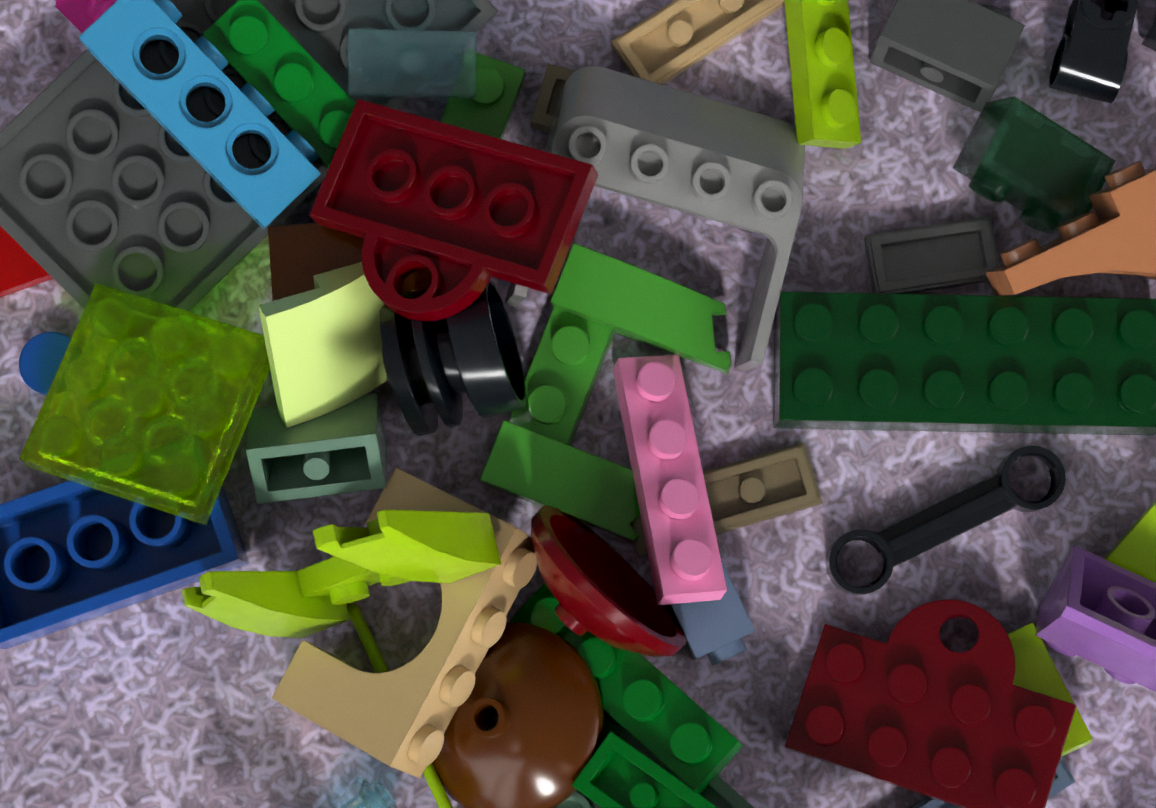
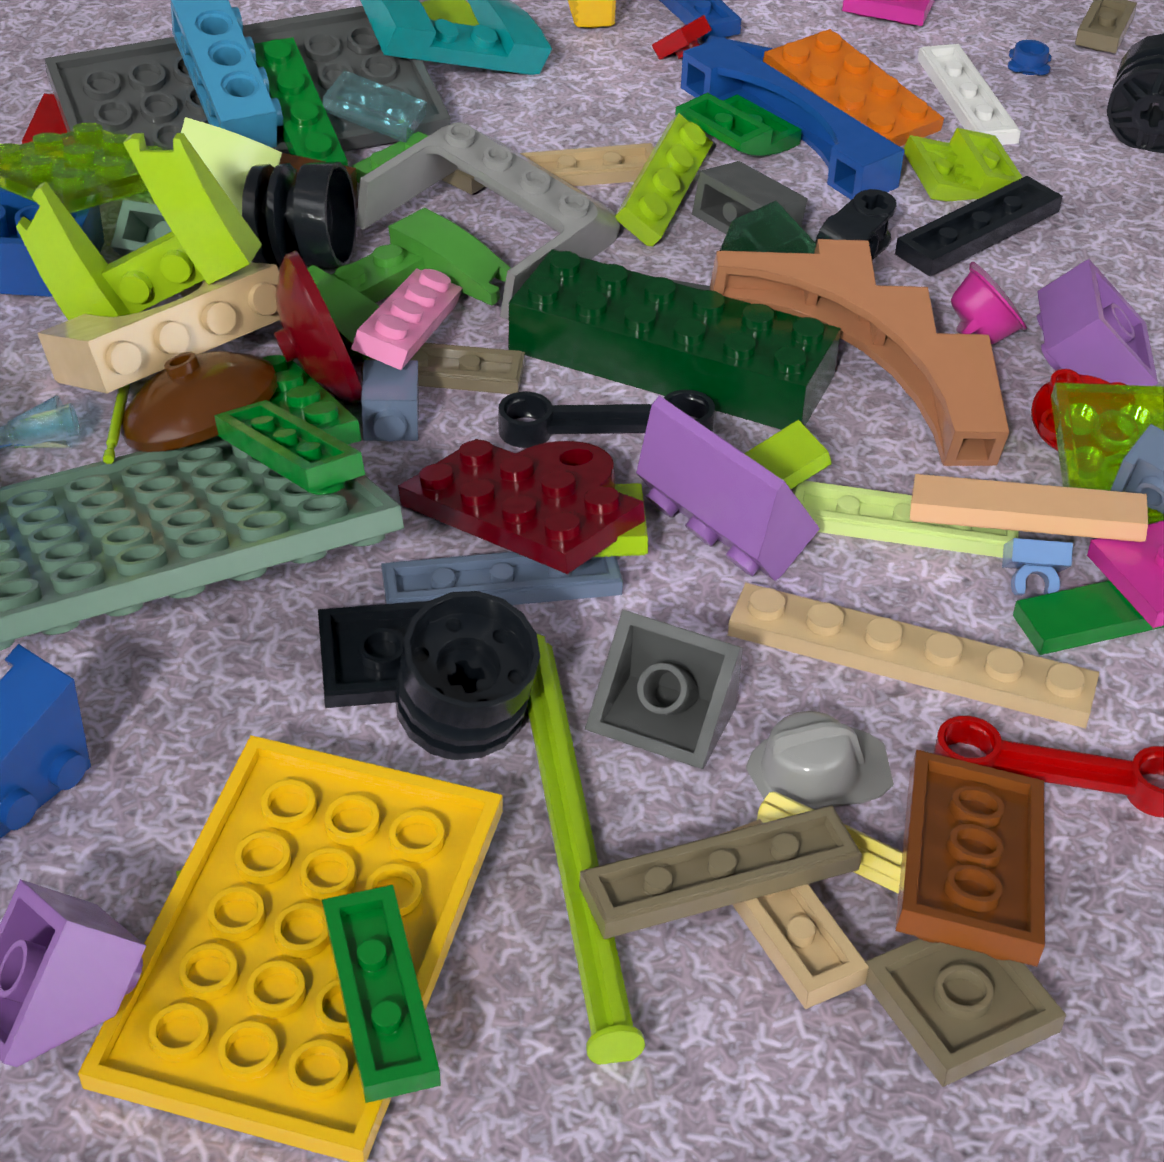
camera: 20 degrees right, 40 degrees down
(449, 207) = (350, 127): dark red plate -> none

